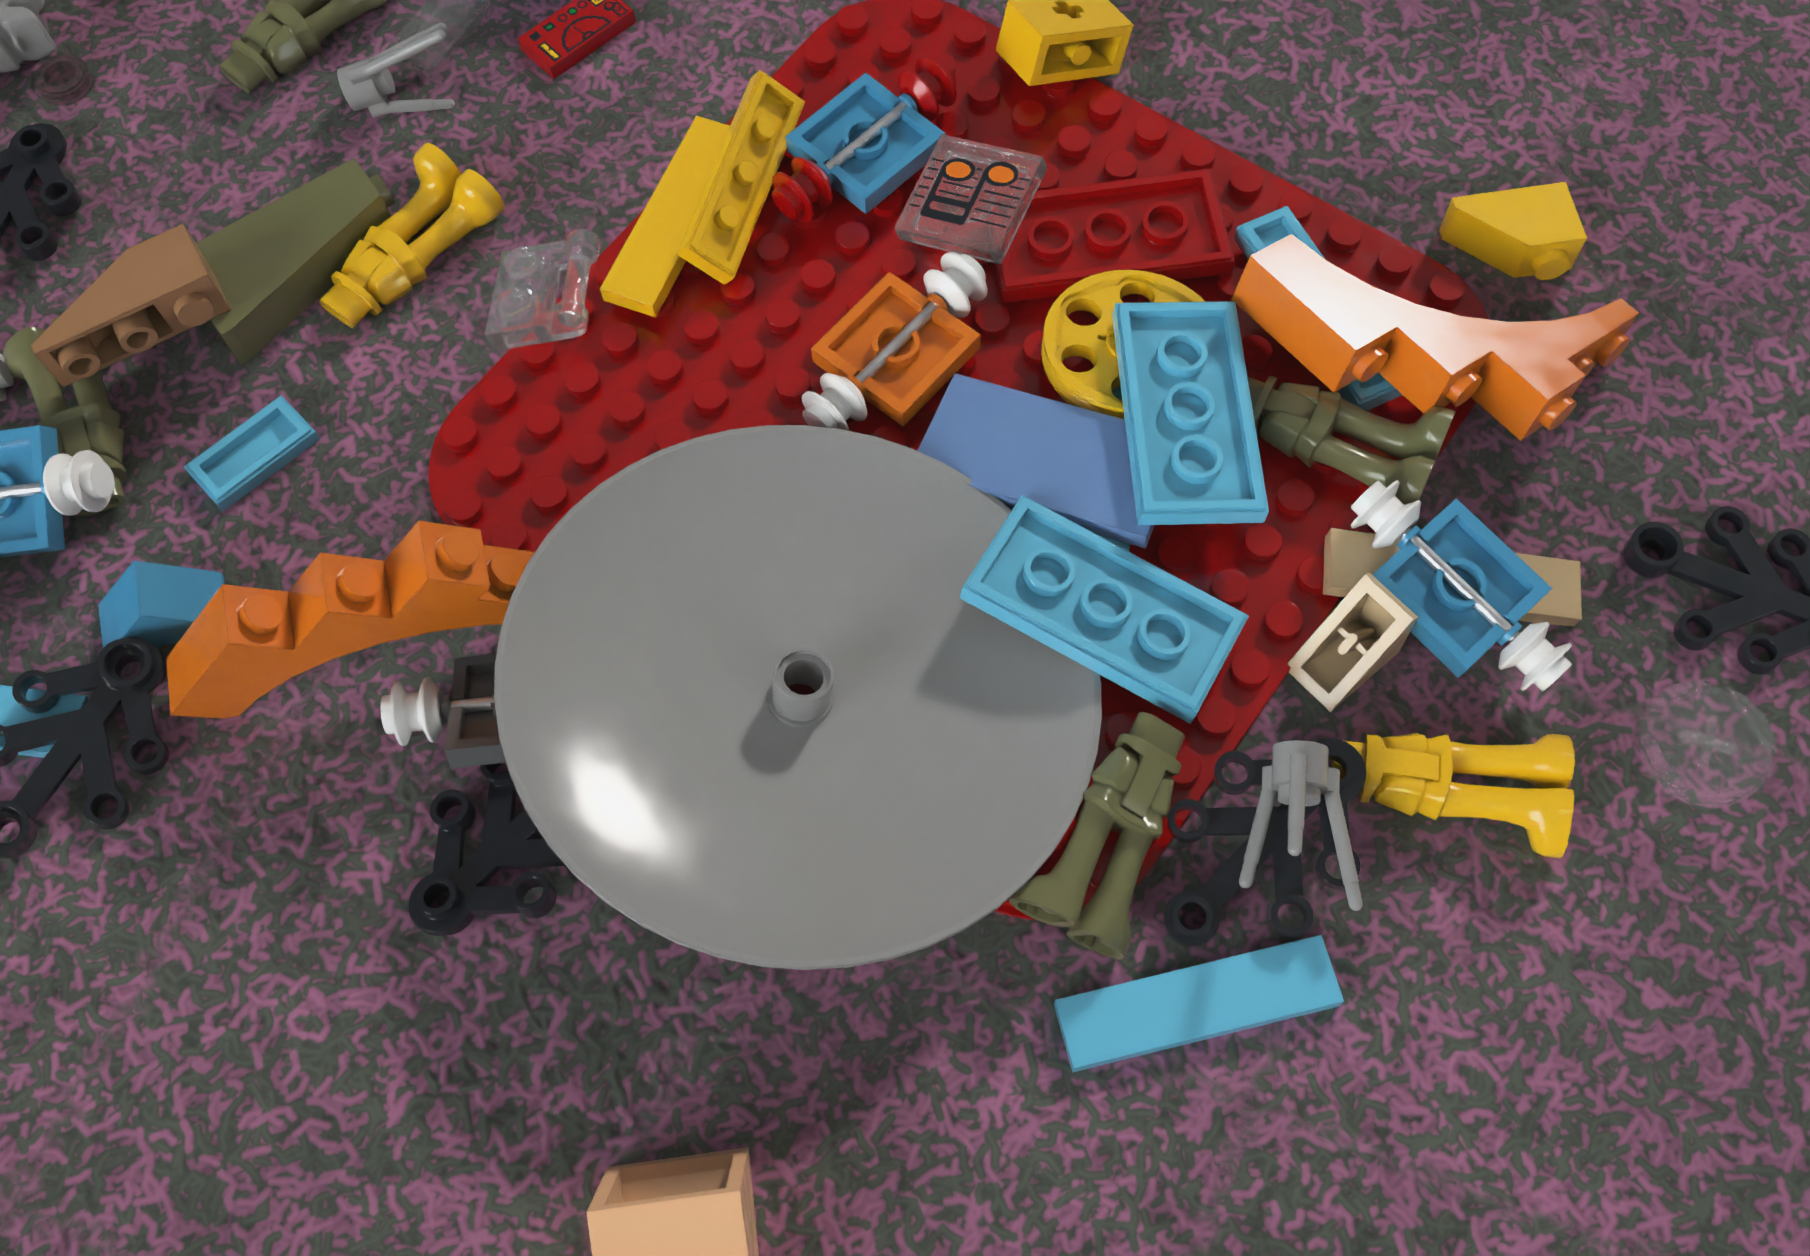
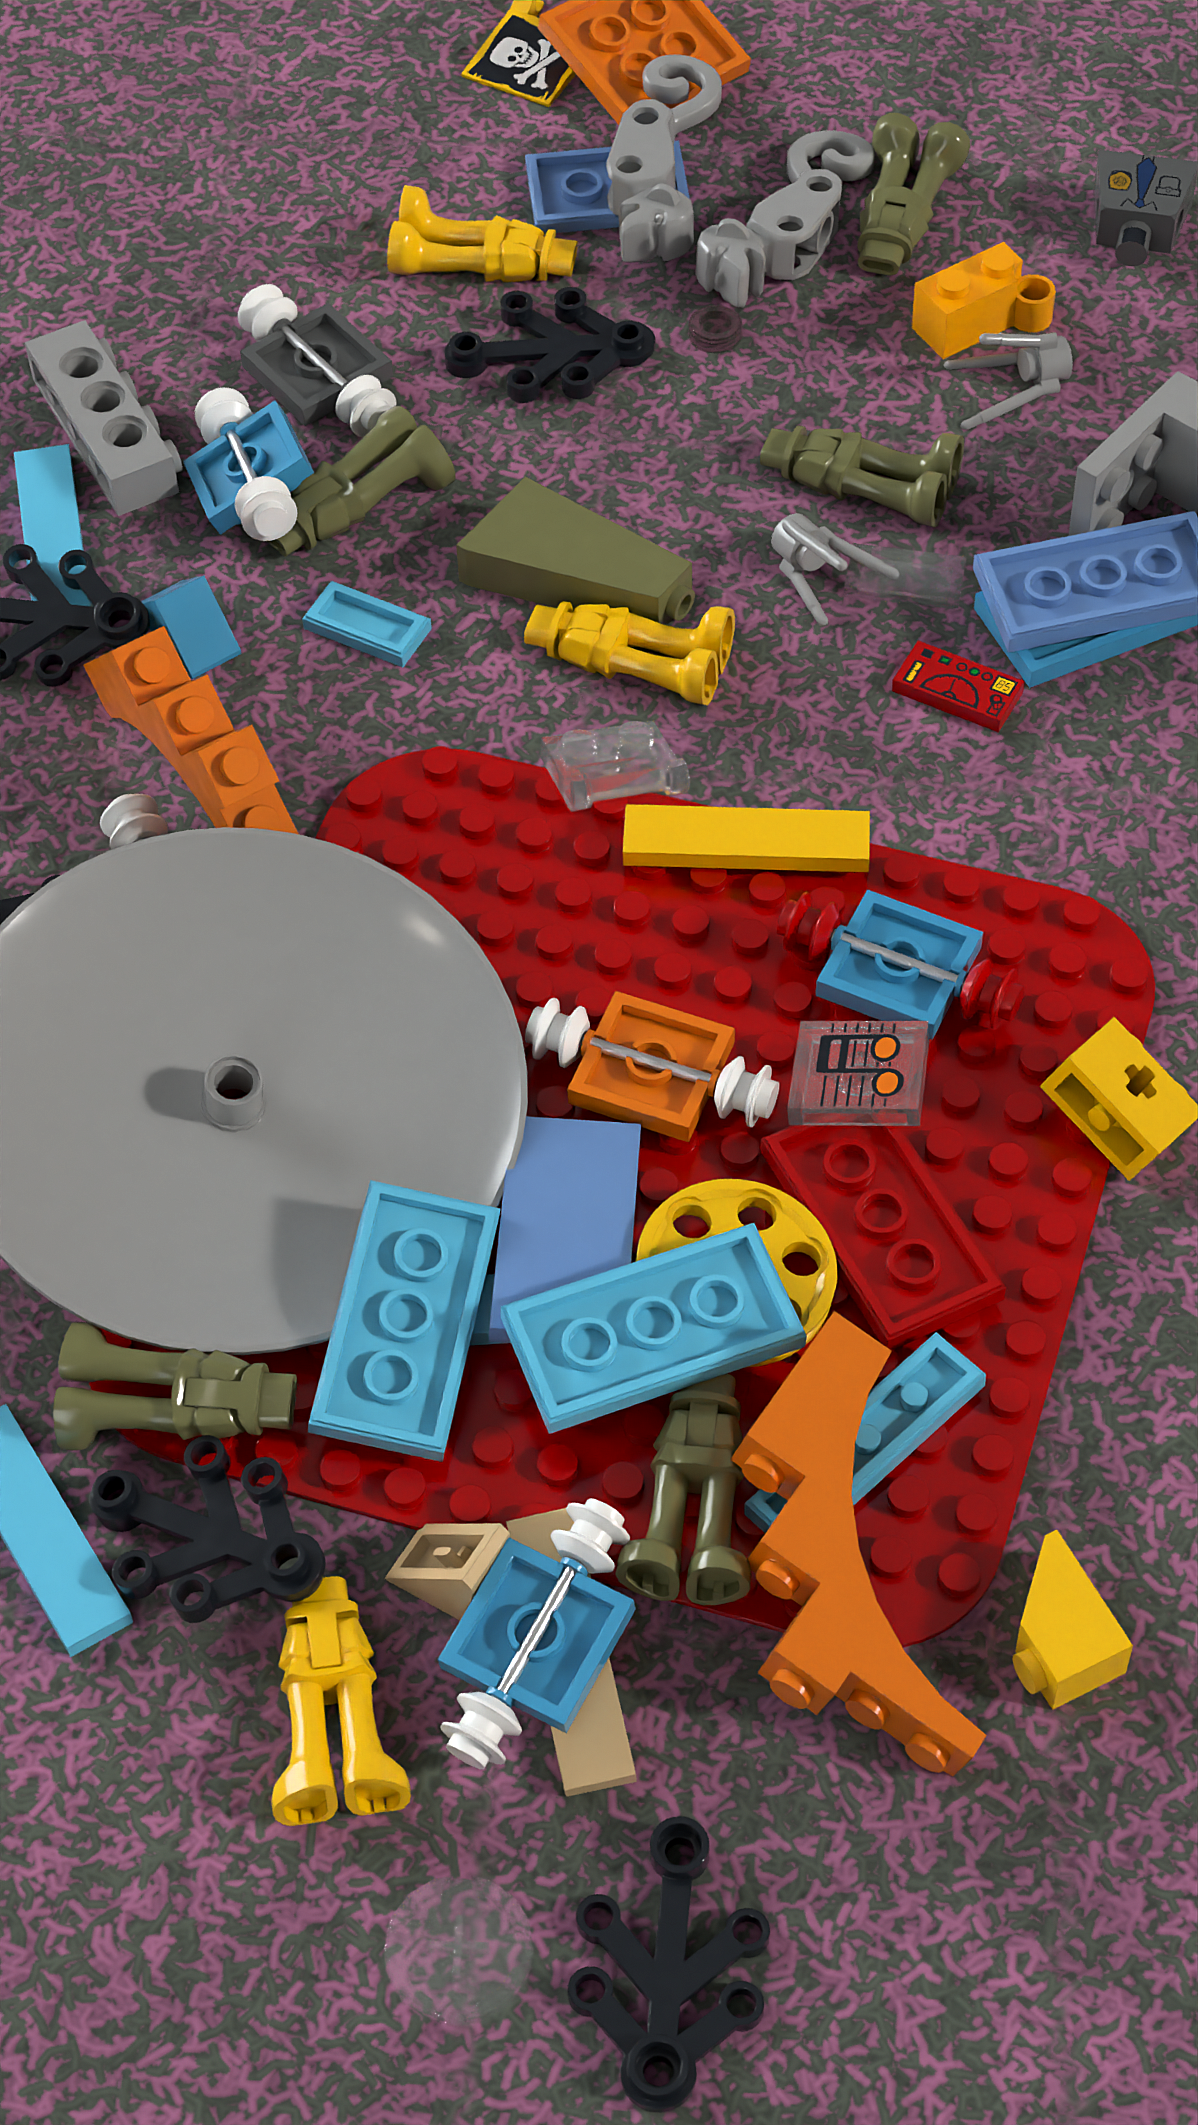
camera: 70 degrees right, 10 degrees down
(132, 306) = (453, 470): medium nougat slope -> none
(741, 178) = (827, 869): yellow tile -> none
(1300, 777) = (254, 1517): light grey plant -> none

